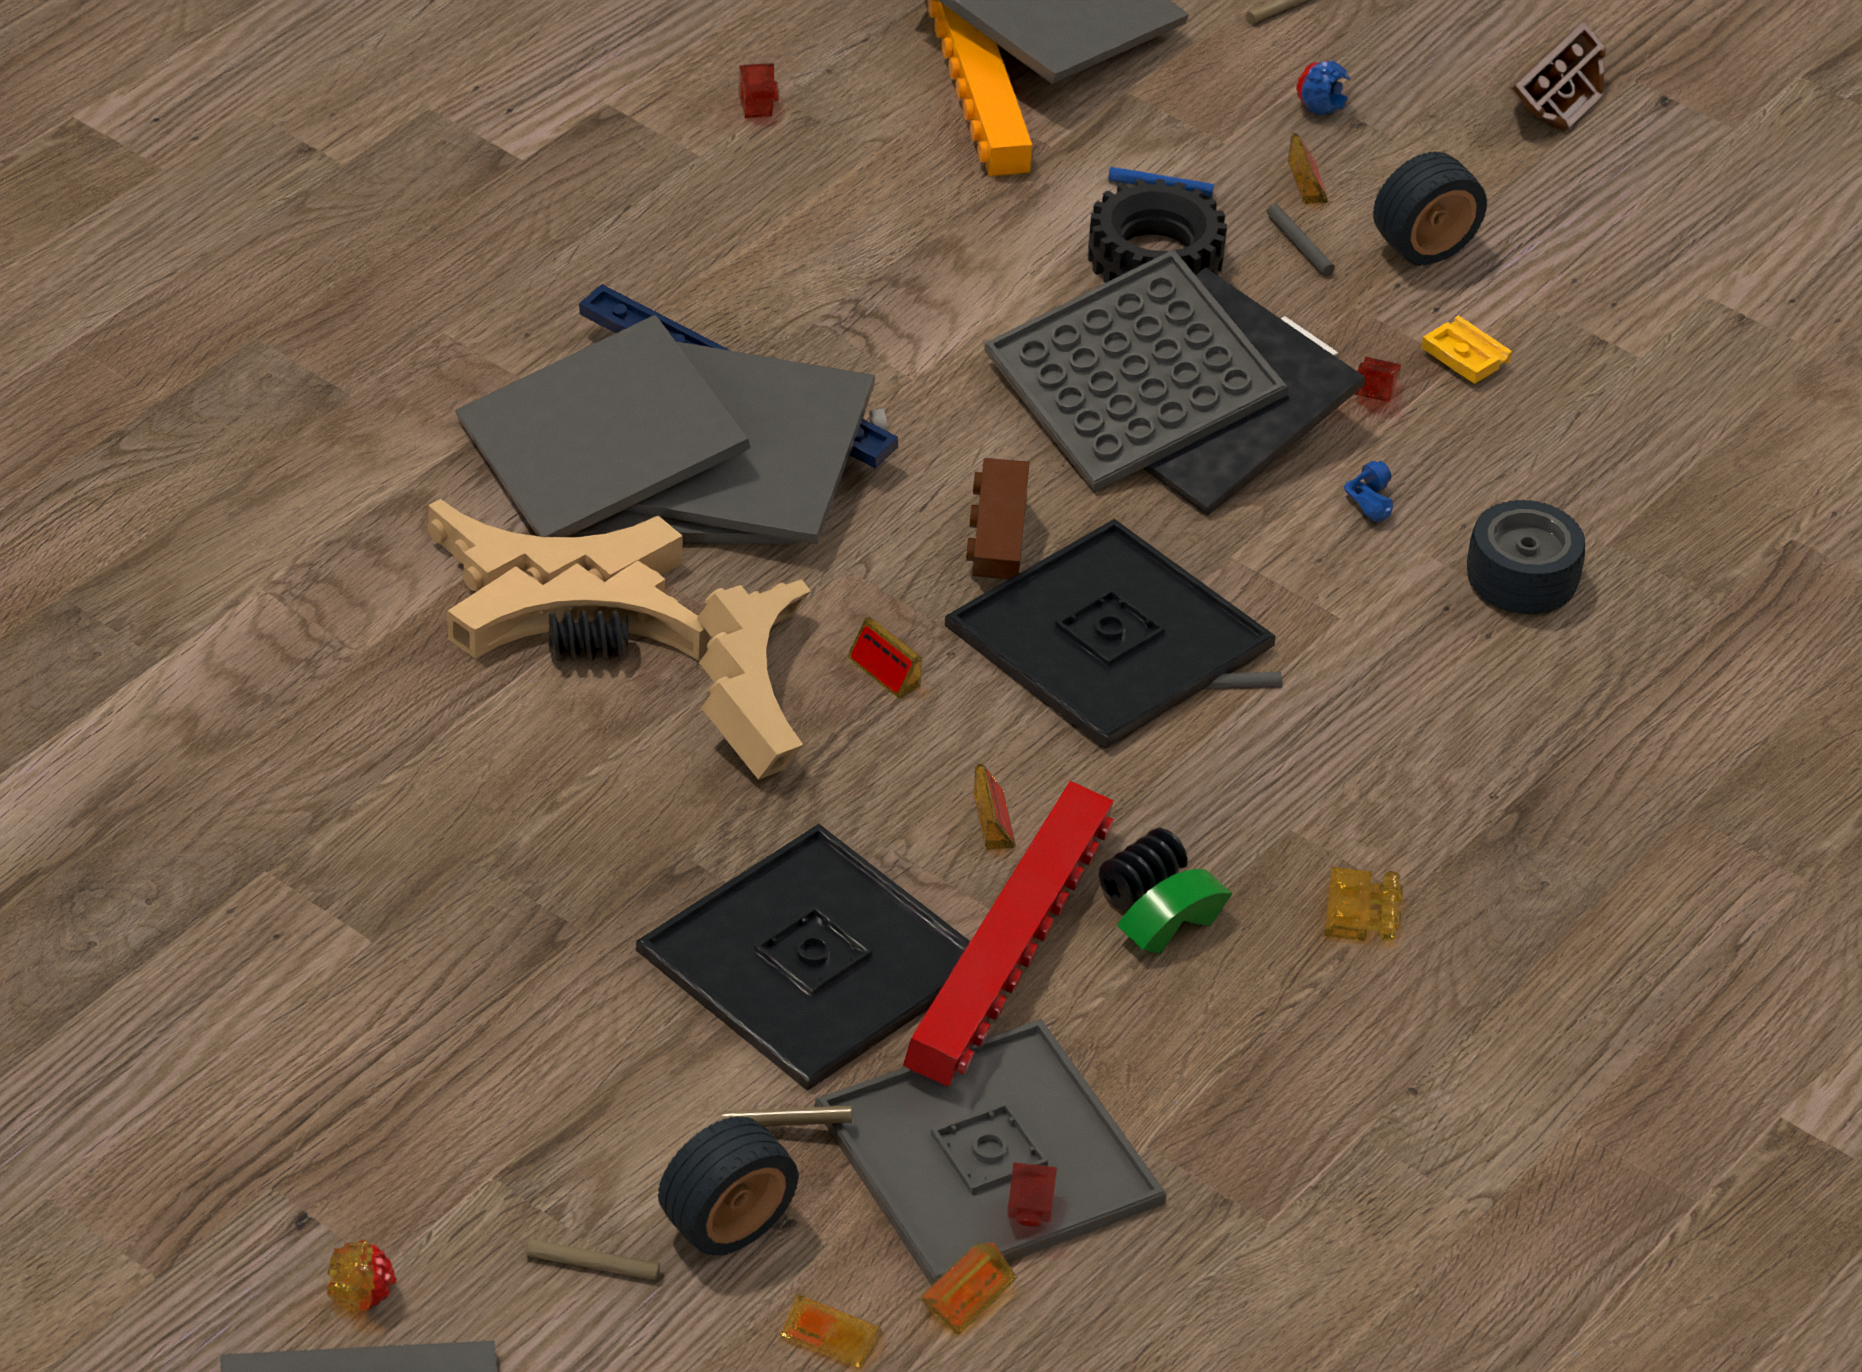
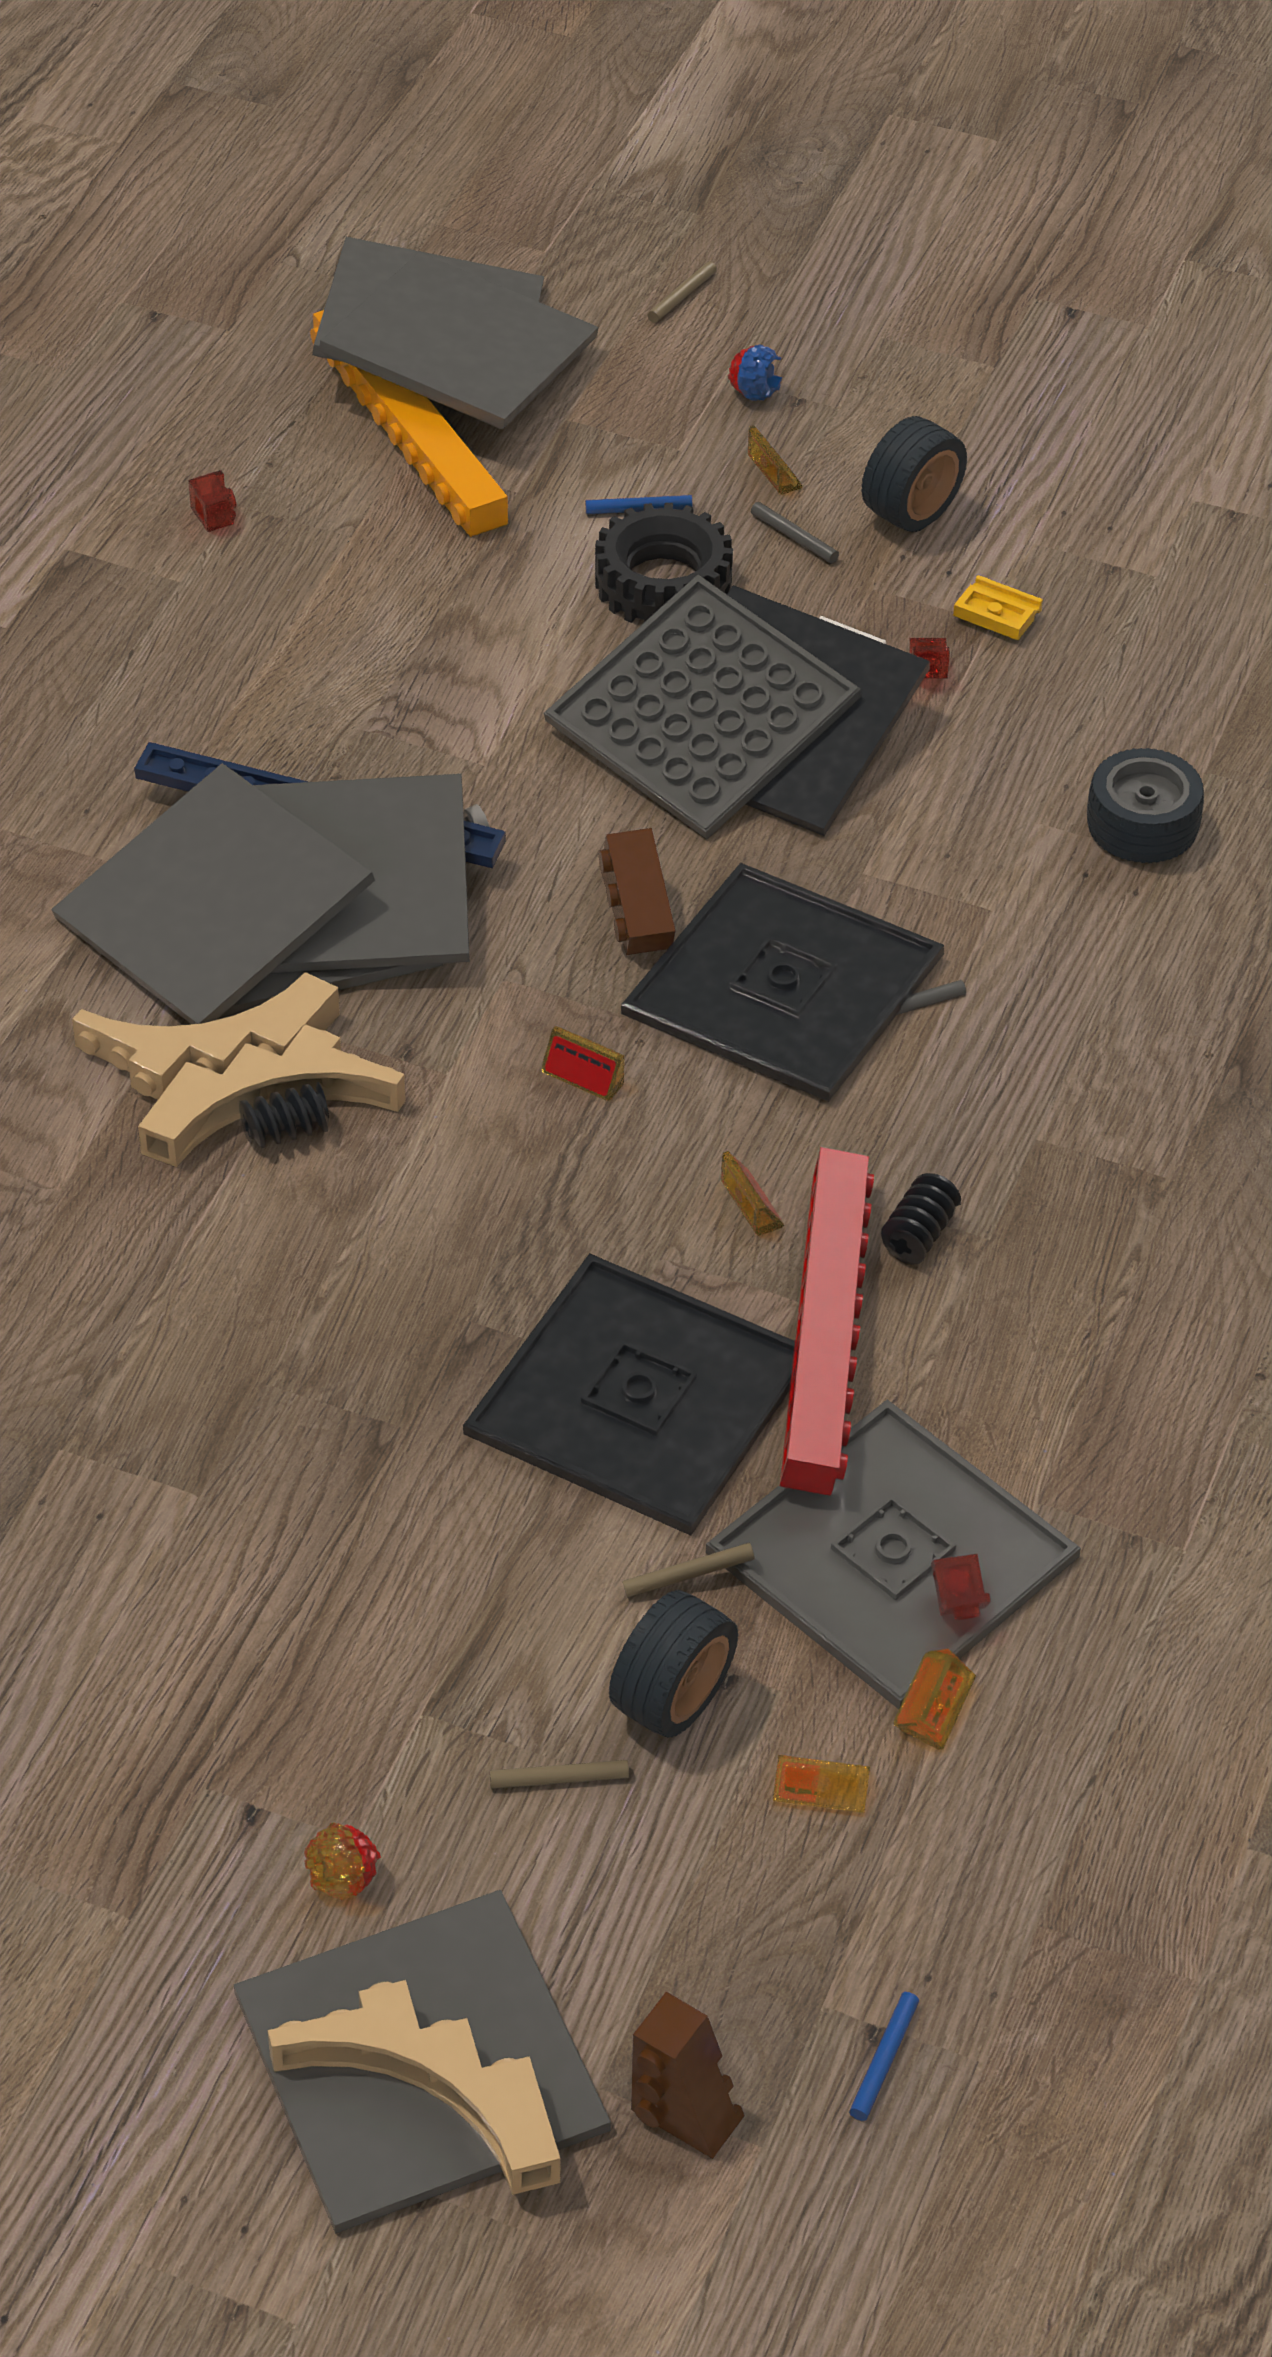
camera: 15 degrees left, 5 degrees up
(736, 660) = (449, 1108): tan arch -> none
(1185, 896) = (975, 1239): green brick -> none
(1349, 901) = (1124, 1201): clear yellow plate -> none
(1376, 478) = (966, 760): blue piece -> none
(1564, 79) = (974, 312): reddish brown wedge -> none

